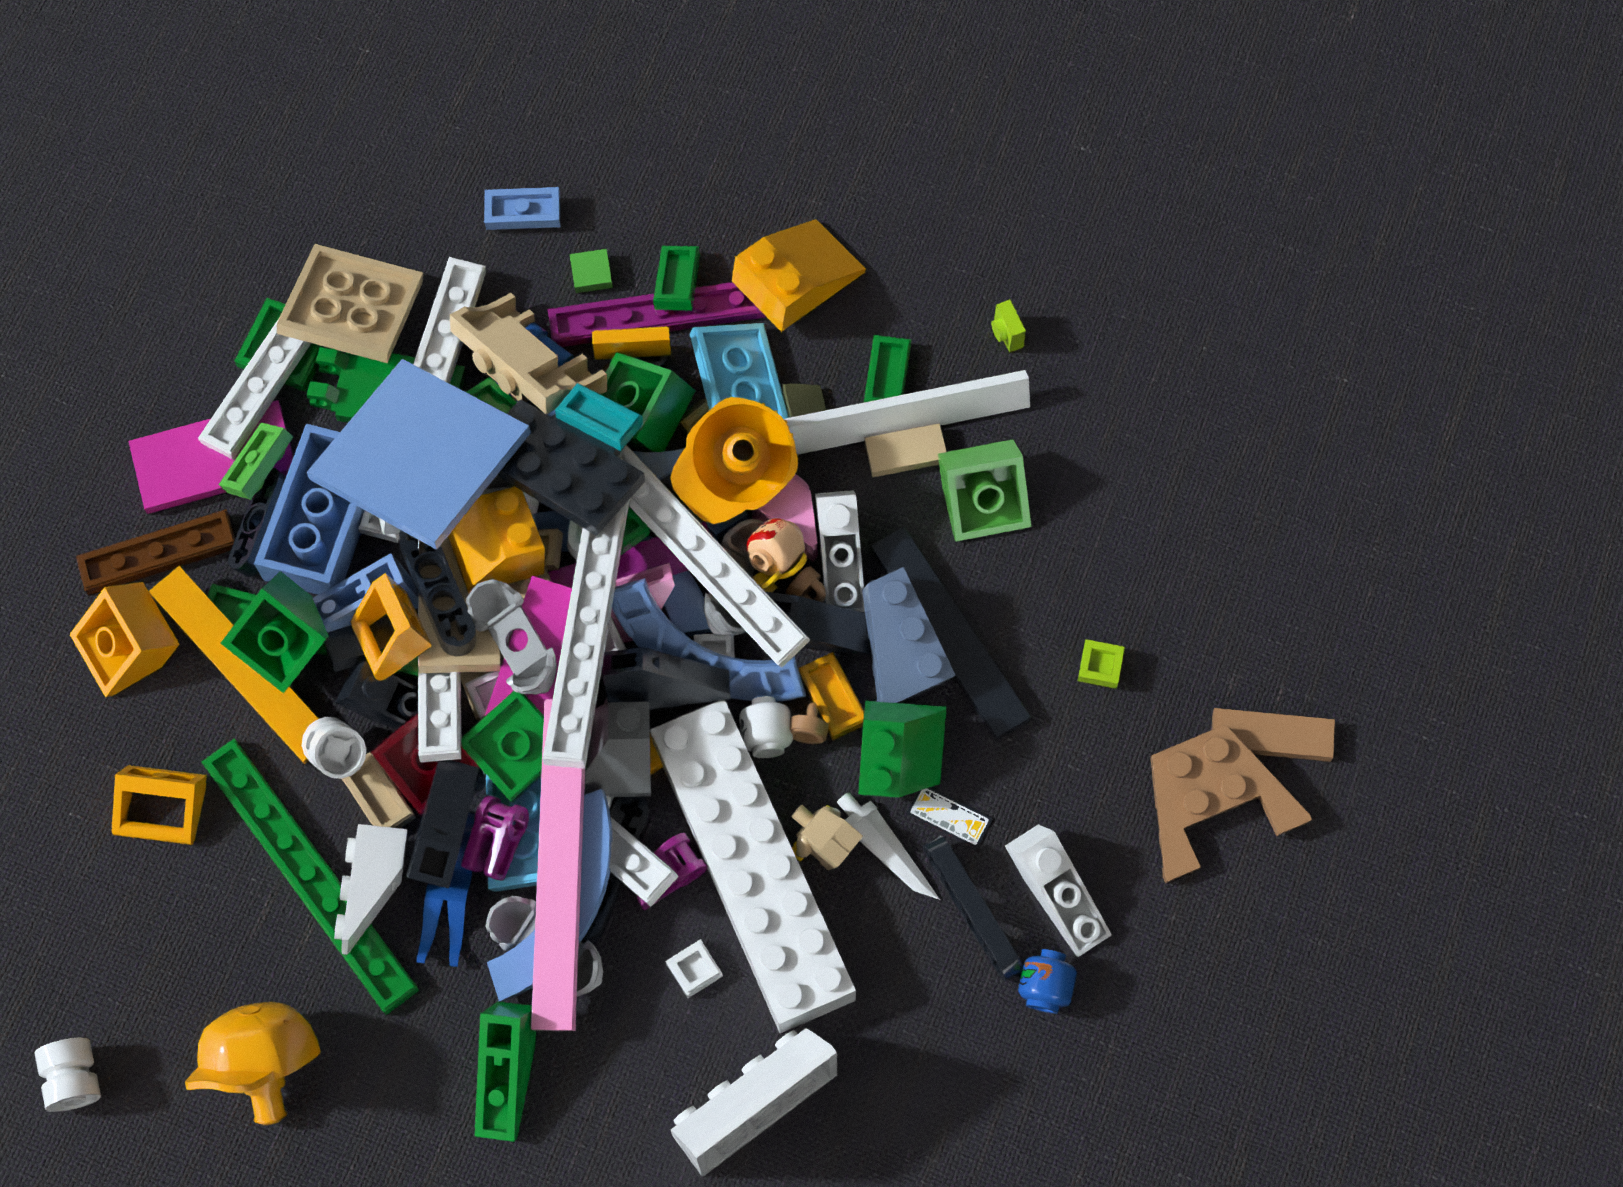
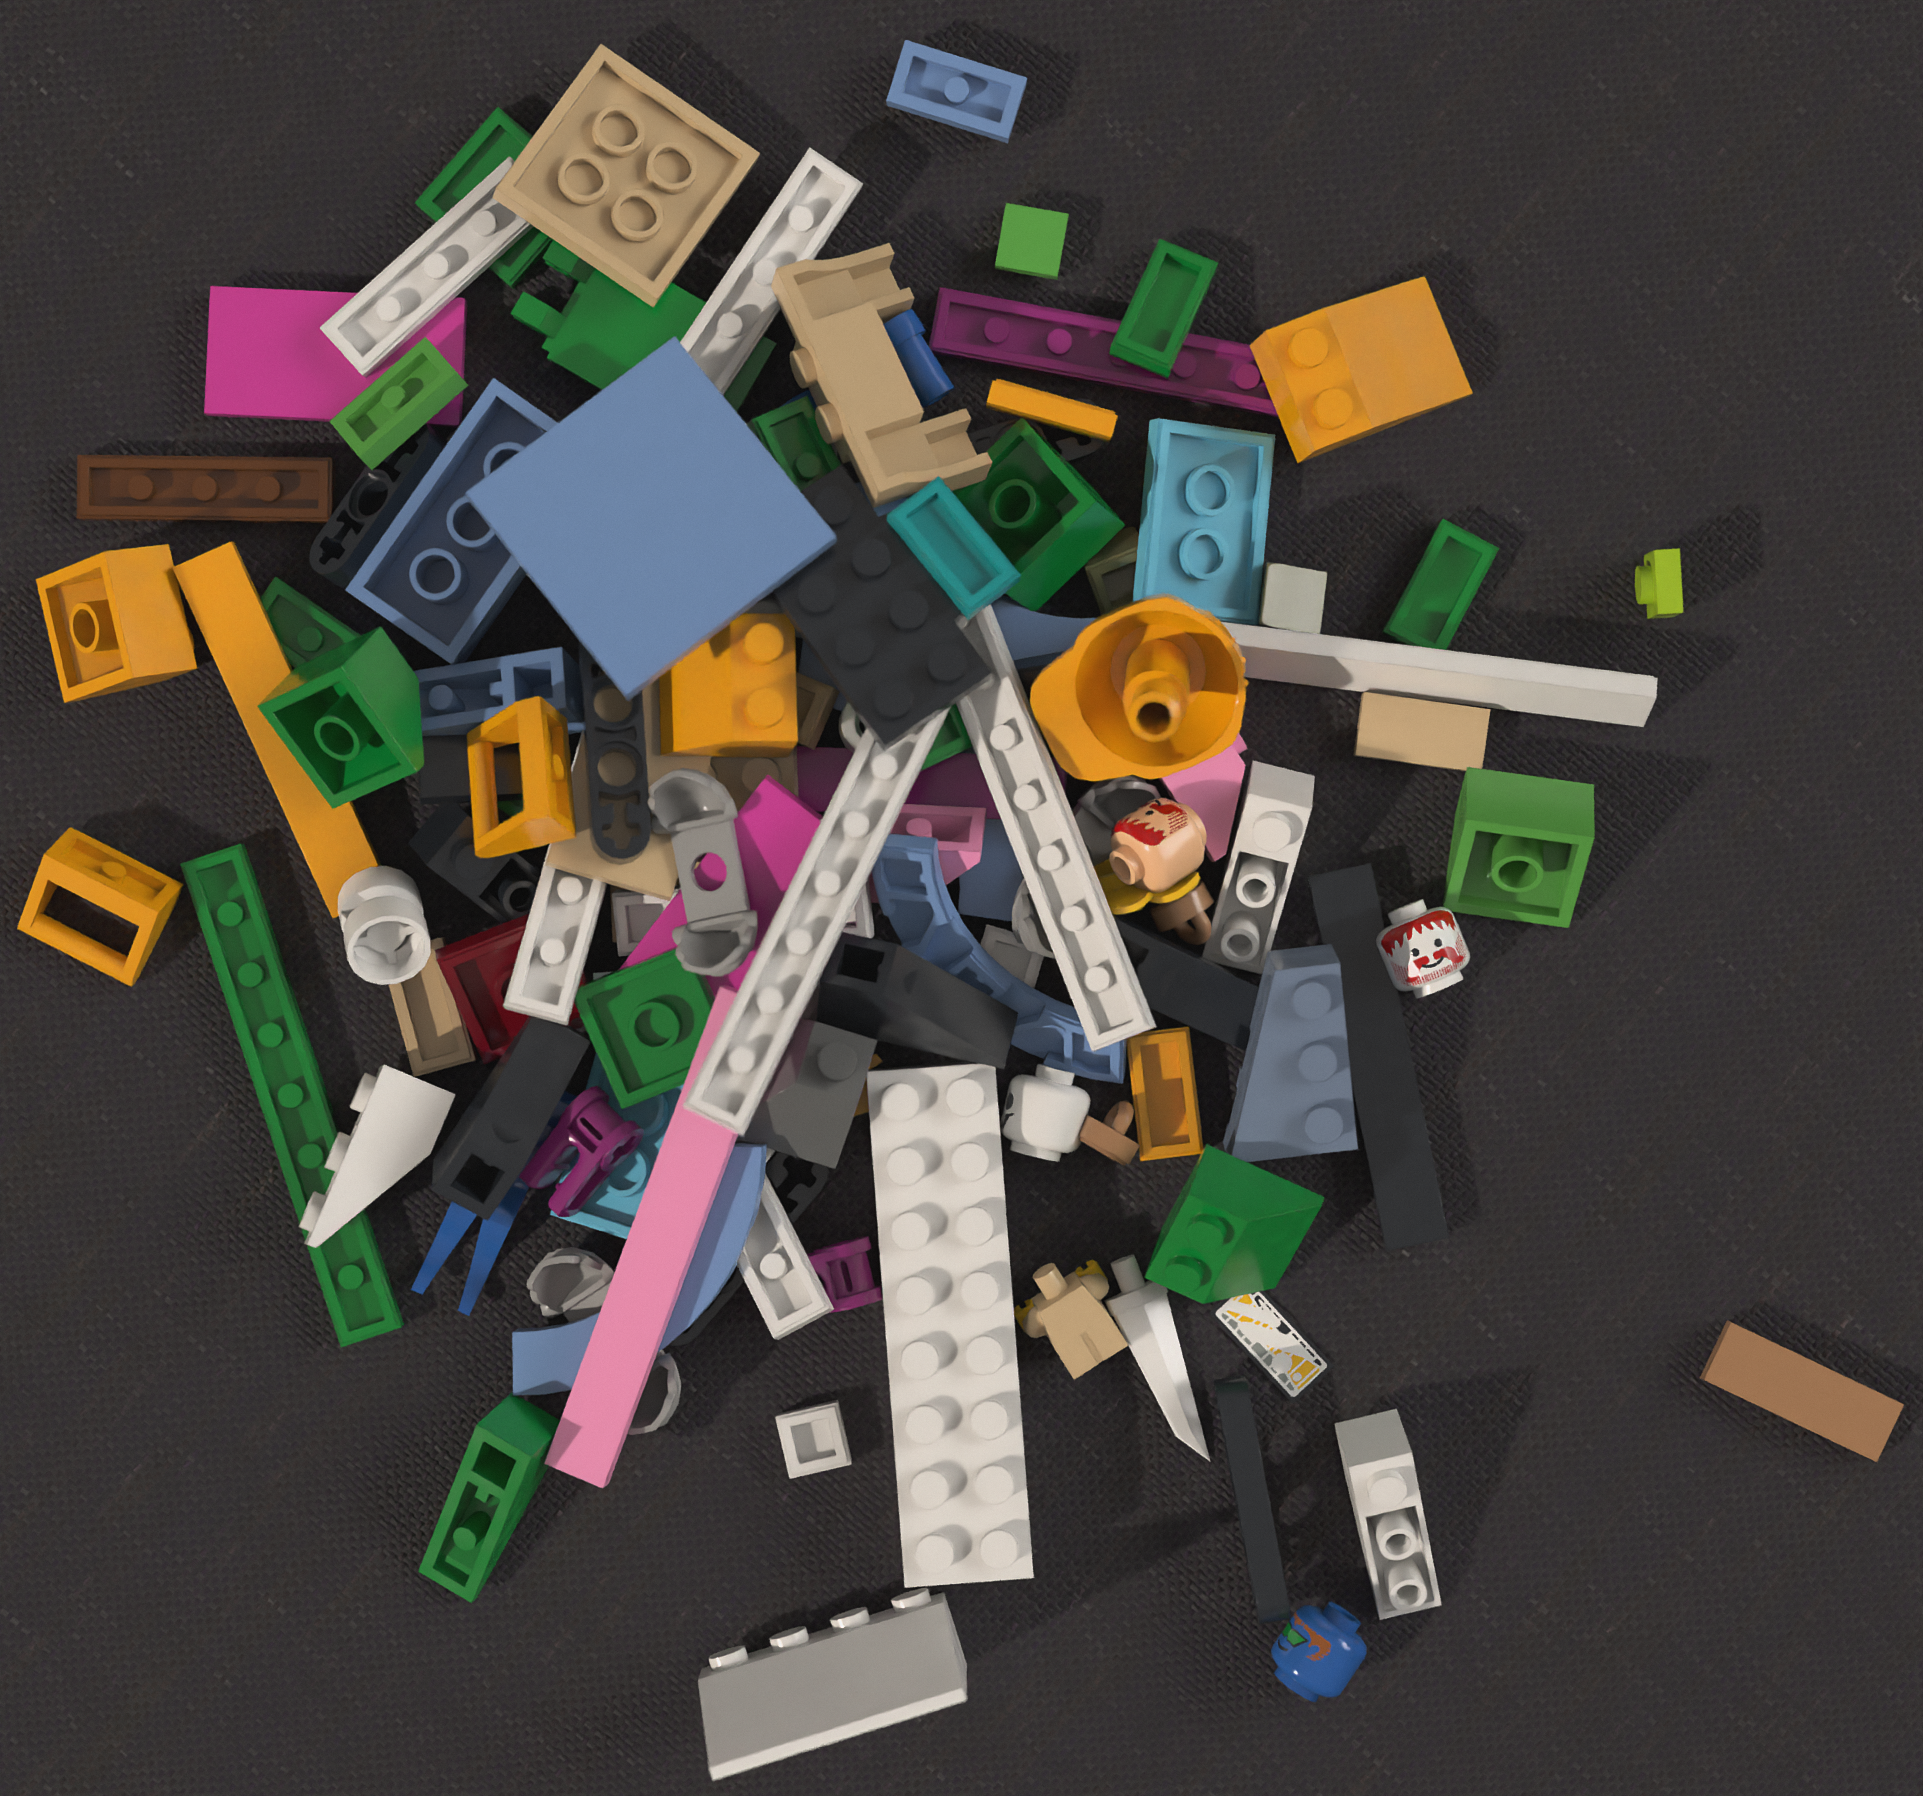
camera: 20 degrees right, 20 degrees up
(252, 1054) = (129, 1366): light orange piece -> none
(952, 562) = (1423, 949): none -> white head
(1101, 663) = (1587, 1192): lime plate -> none
(1208, 779) = (1673, 1431): medium nougat wing -> none

